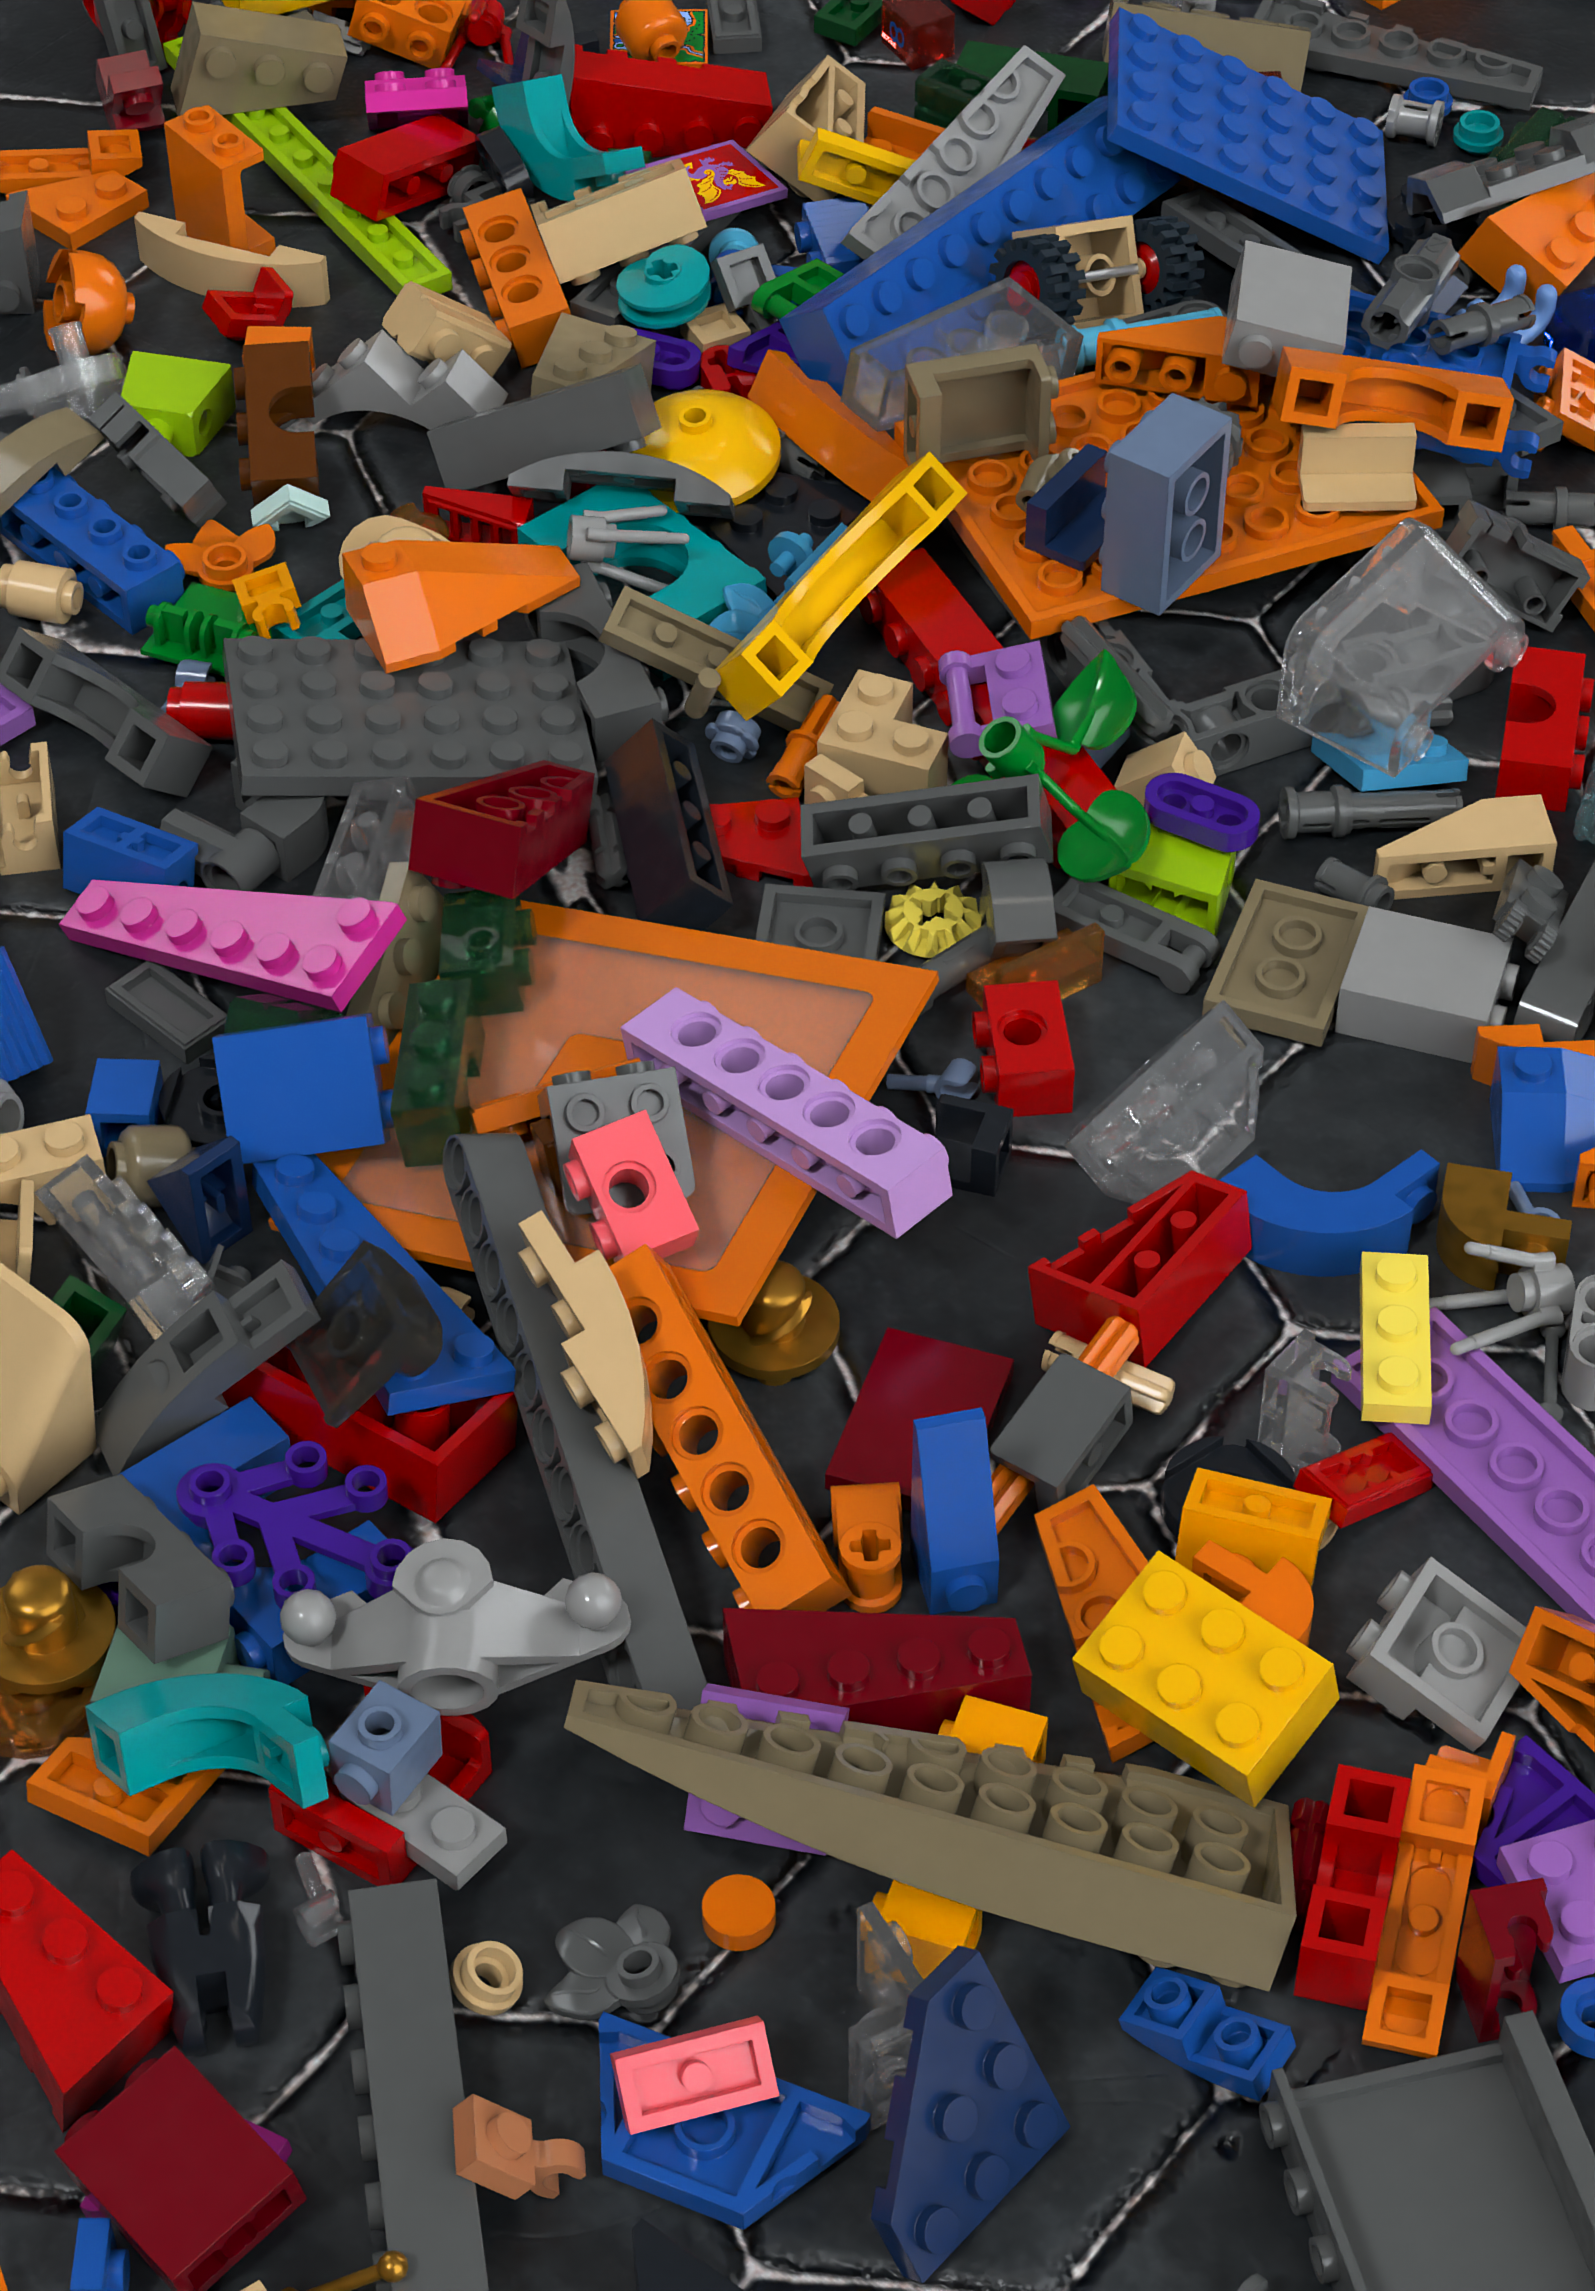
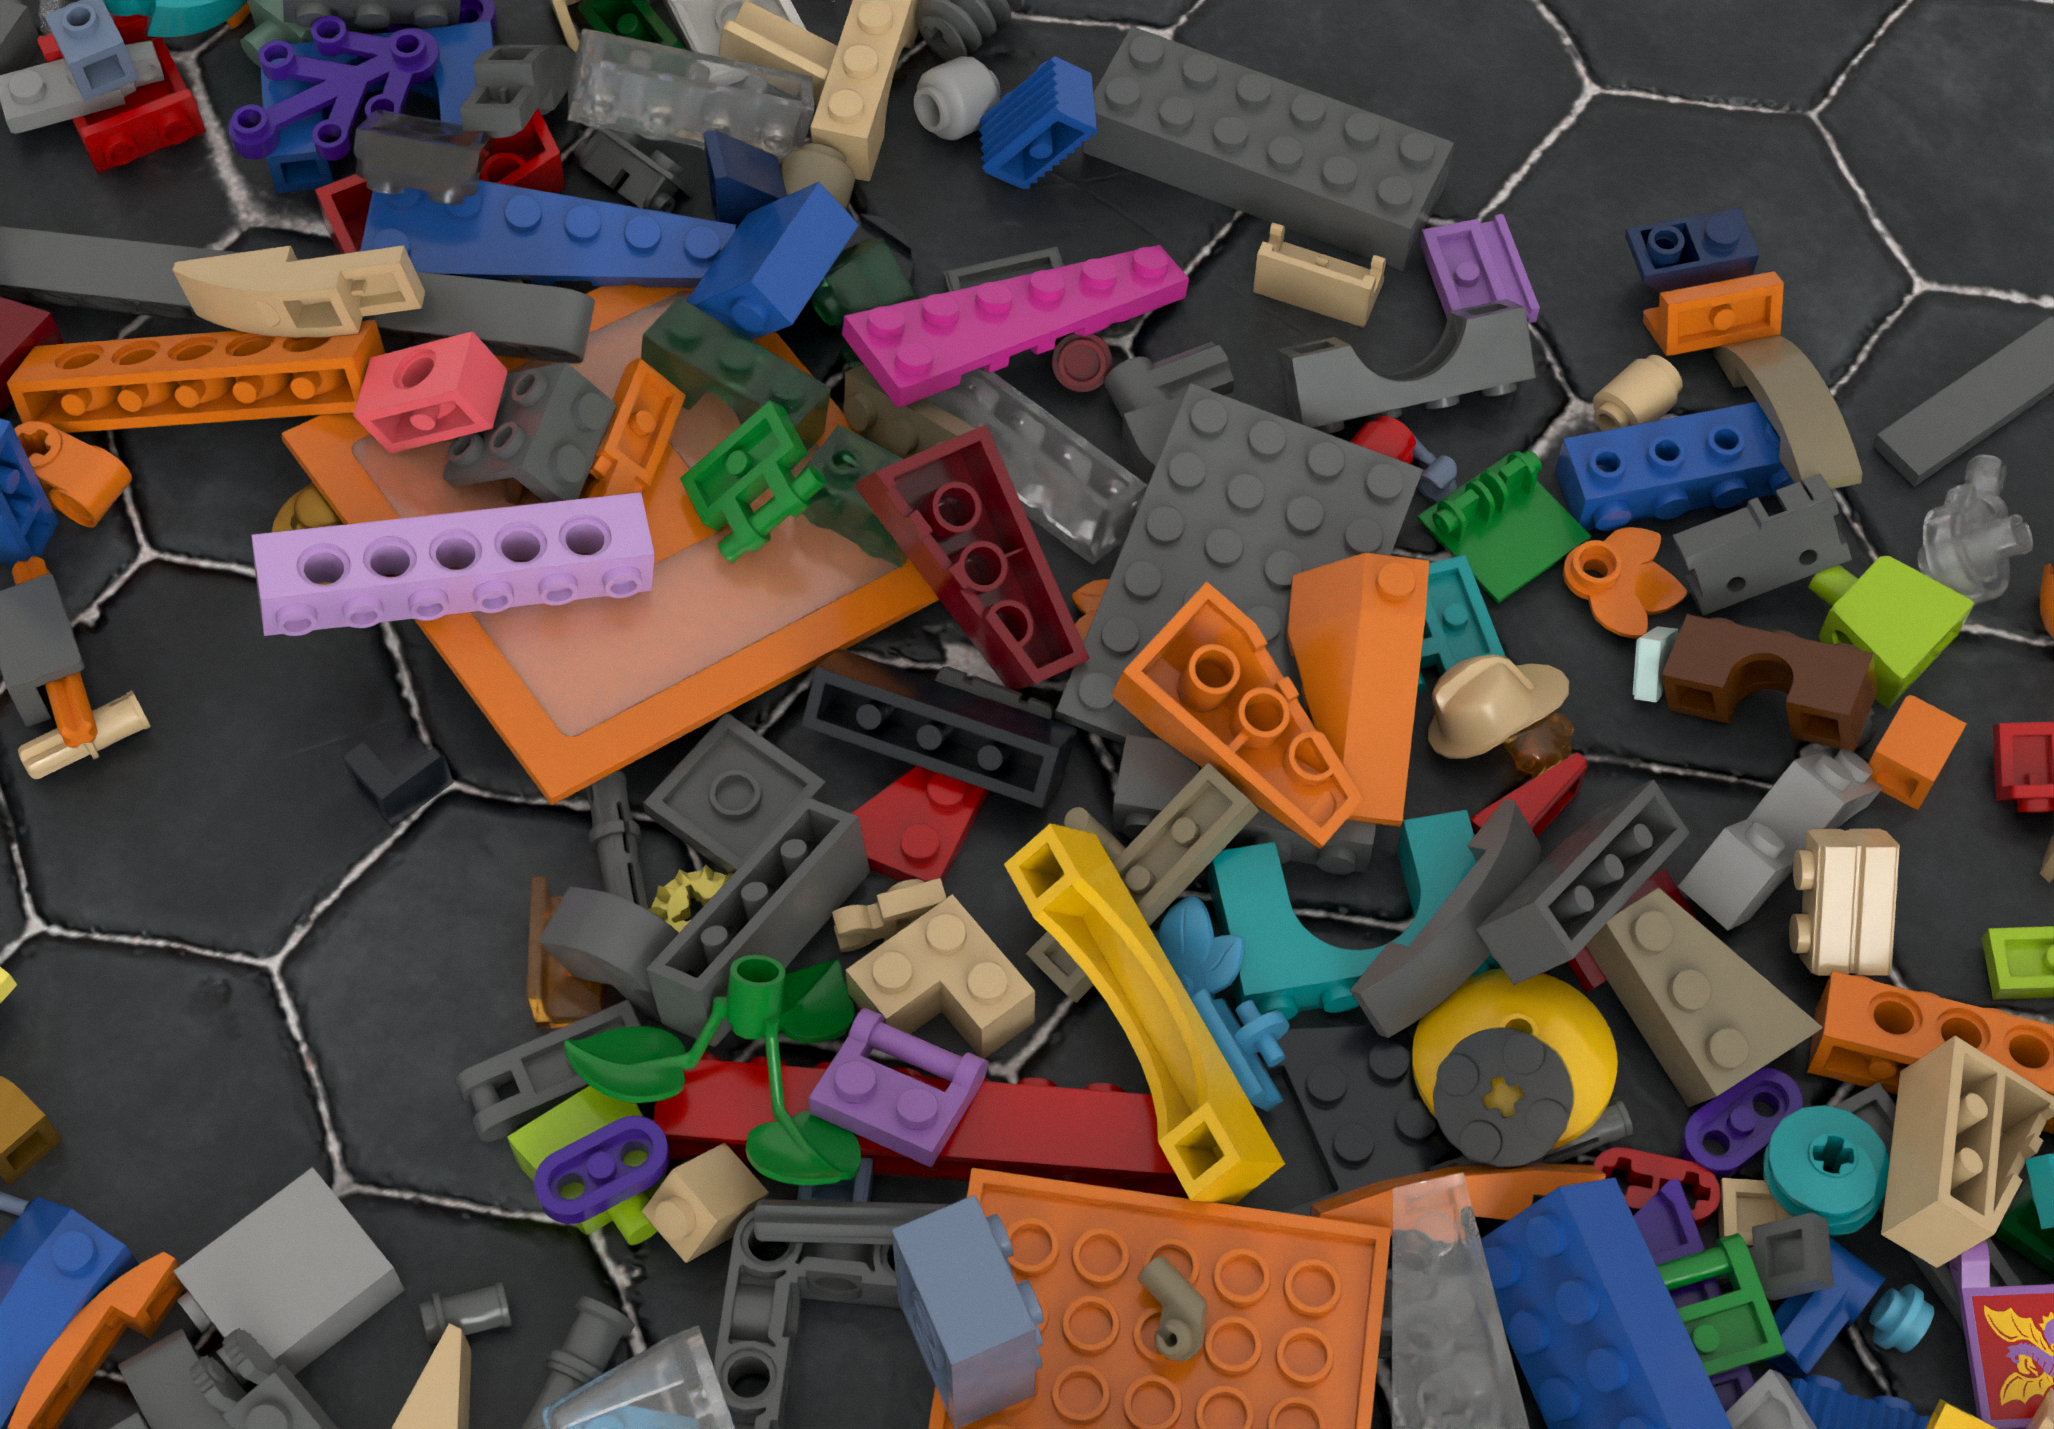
camera: 120 degrees right, 15 degrees up
(122, 1096) = (898, 193): blue brick -> none
(124, 851) = (1194, 309): blue hinge -> none
(268, 598) = (1496, 557): light orange plate -> none
(453, 1630) = (147, 125): light grey piece -> none
(532, 1002) = (743, 468): none -> green plate
(545, 640) = (1225, 703): none -> orange wedge
(593, 538) = (1386, 852): light grey plant -> none
(751, 407) = (1484, 1132): none -> black plate
(788, 774) = (997, 921): orange axle -> none
(908, 1382) = (157, 584): dark red tile -> none
(952, 1081) = (486, 808): sand blue hand -> none
(980, 405) = (1294, 1187): dark tan panel -> none
(1025, 1047) = (442, 856): red brick -> none
(1066, 512) = (1091, 1306): dark blue panel -> none
(1149, 1266) = (139, 805): red wedge -> none
(1176, 1112) = (290, 921): clear wedge -> none
(1287, 961) = (416, 1184): dark tan plate -> none
(1327, 1231) = (85, 985): blue arch -> none

